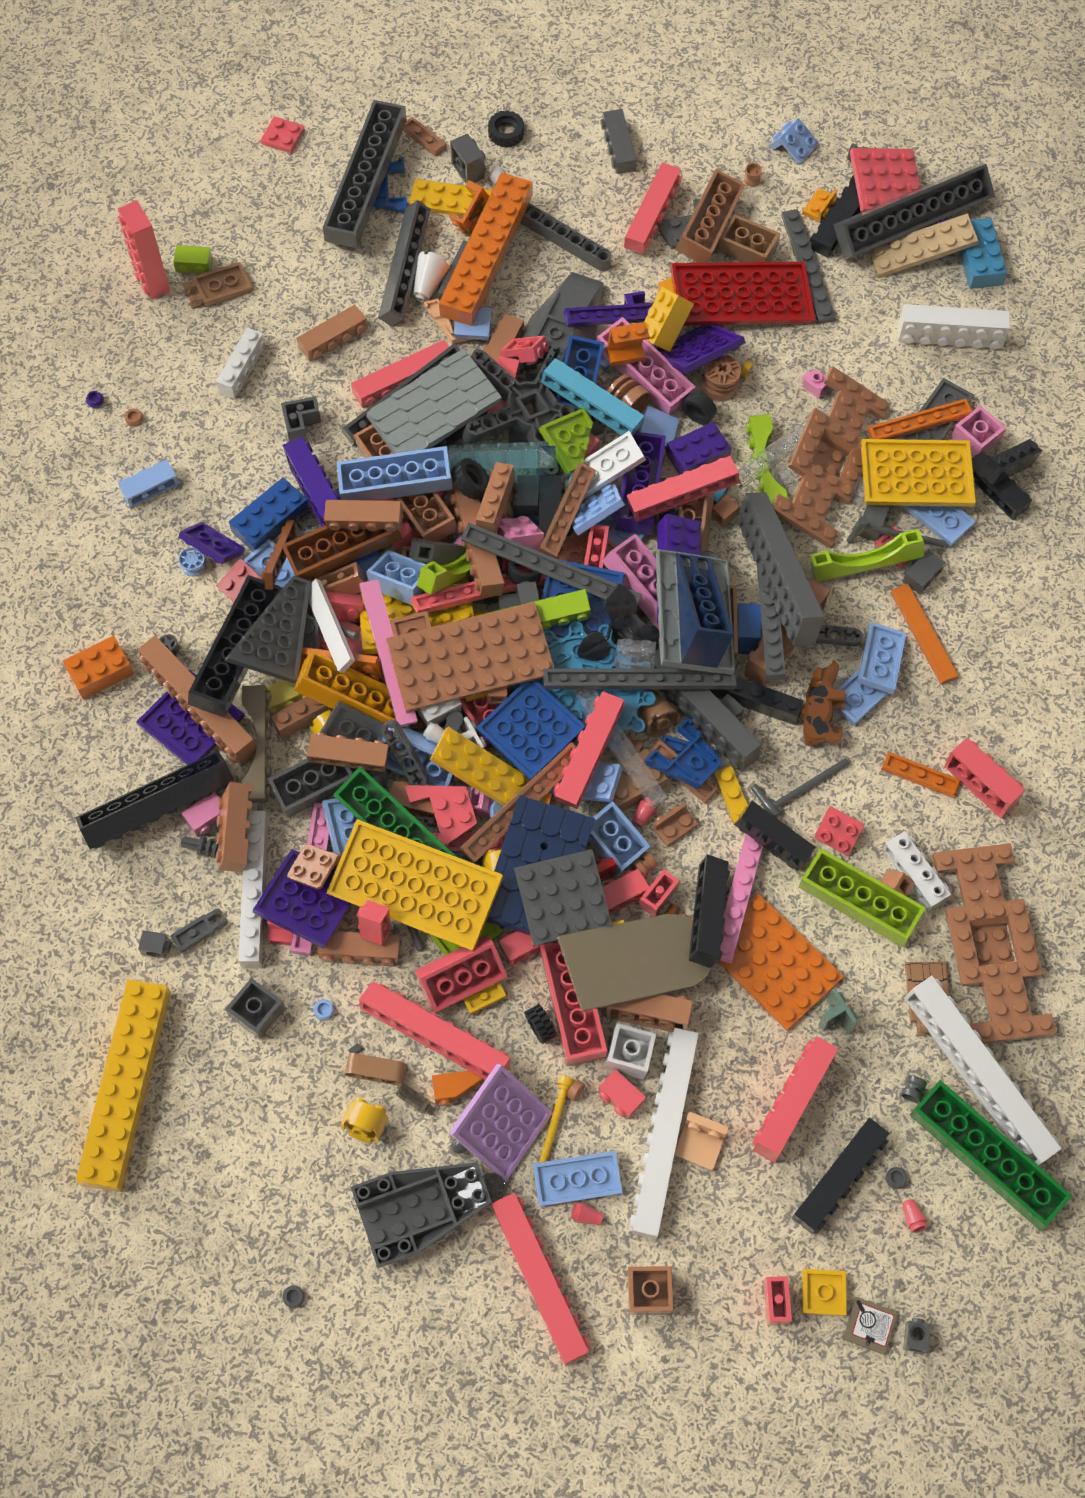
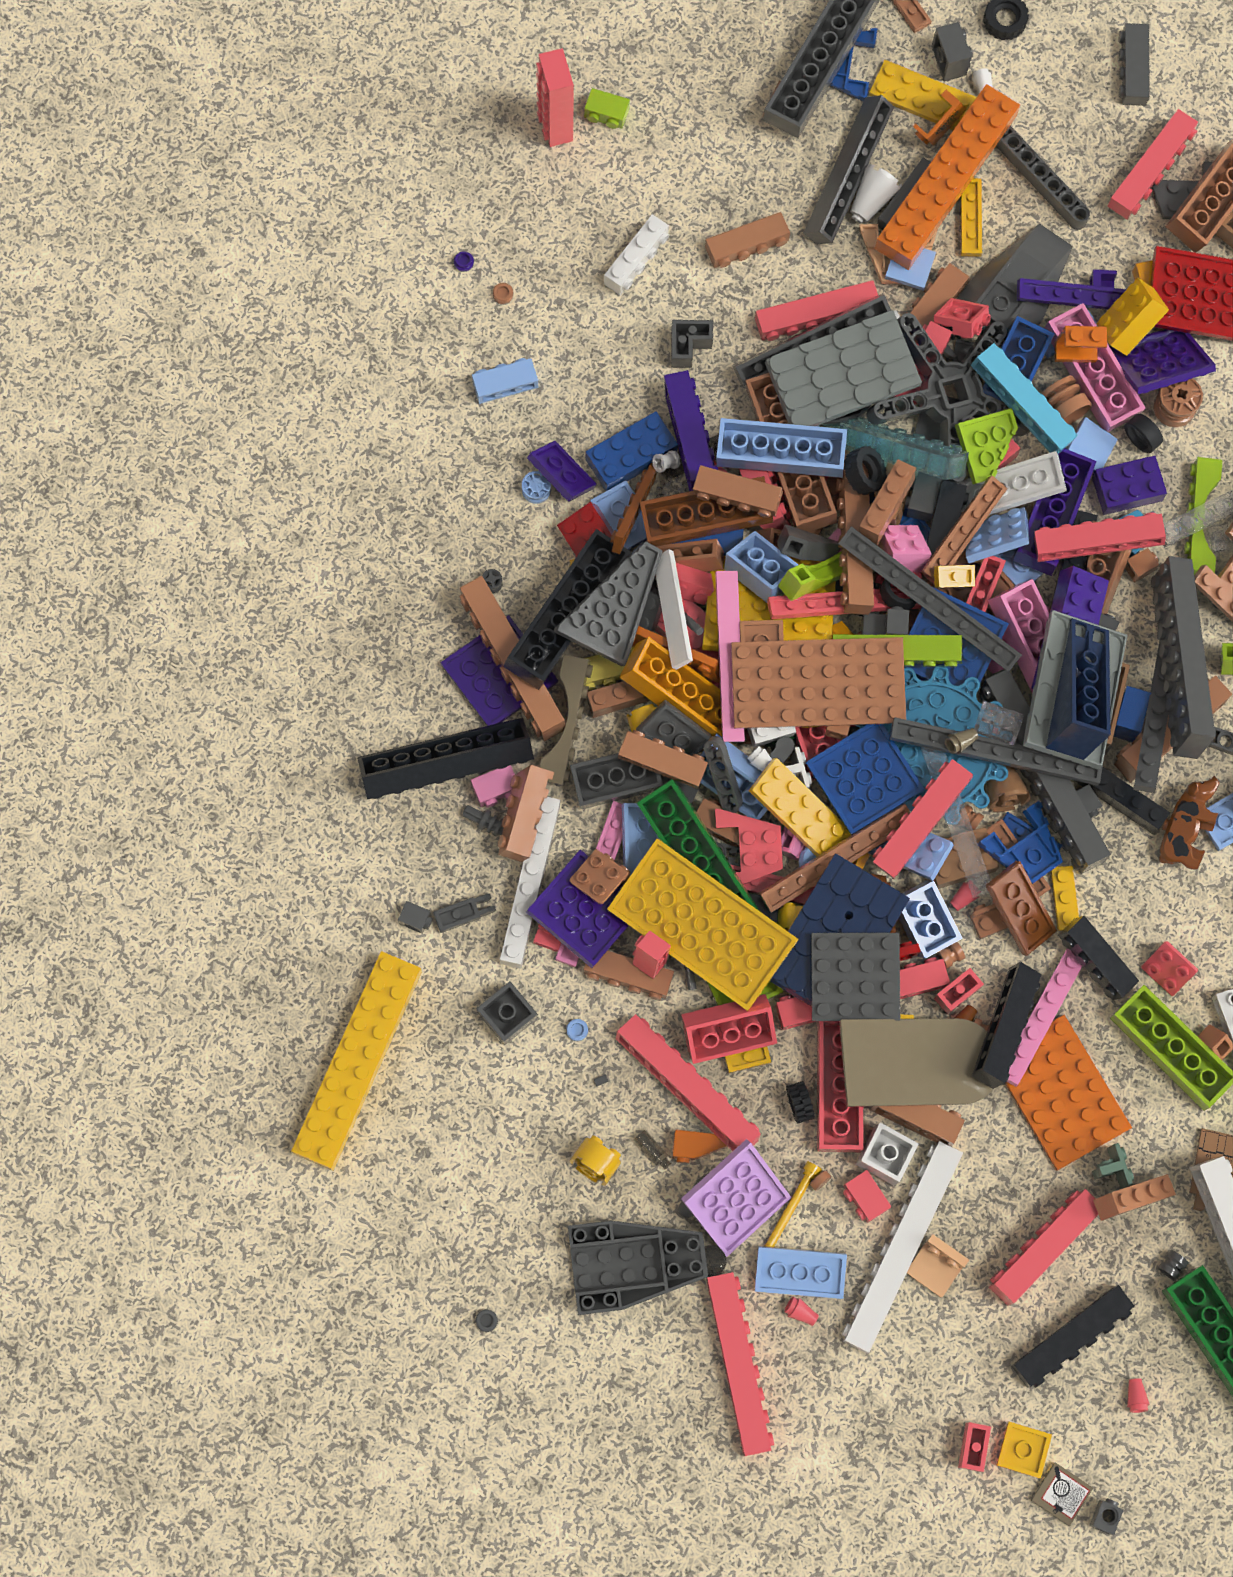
camera: 10 degrees right, 10 degrees up
(98, 667) = (411, 589): orange brick -> none
(217, 285) = (629, 148): medium nougat tile -> none
(299, 514) = (666, 461): none -> white bush
(375, 1069) = (618, 1107): medium nougat beam -> none
(515, 280) = (971, 219): none -> yellow plate
(568, 546) = (954, 576): none -> plate
(606, 674) = (960, 740): none -> dark tan cone
(618, 605) = (992, 670): black plant -> none
(650, 1290) = (847, 1404): nougat brick -> none
(695, 808) = (1021, 908): none -> dark orange tile
(747, 369) = (1210, 395): yellow tile -> none
(773, 806) = (1105, 922): dark grey bar -> none
(862, 1033) = (1134, 1197): none -> nougat brick
(896, 1178) = (1129, 1352): dark grey tile -> none

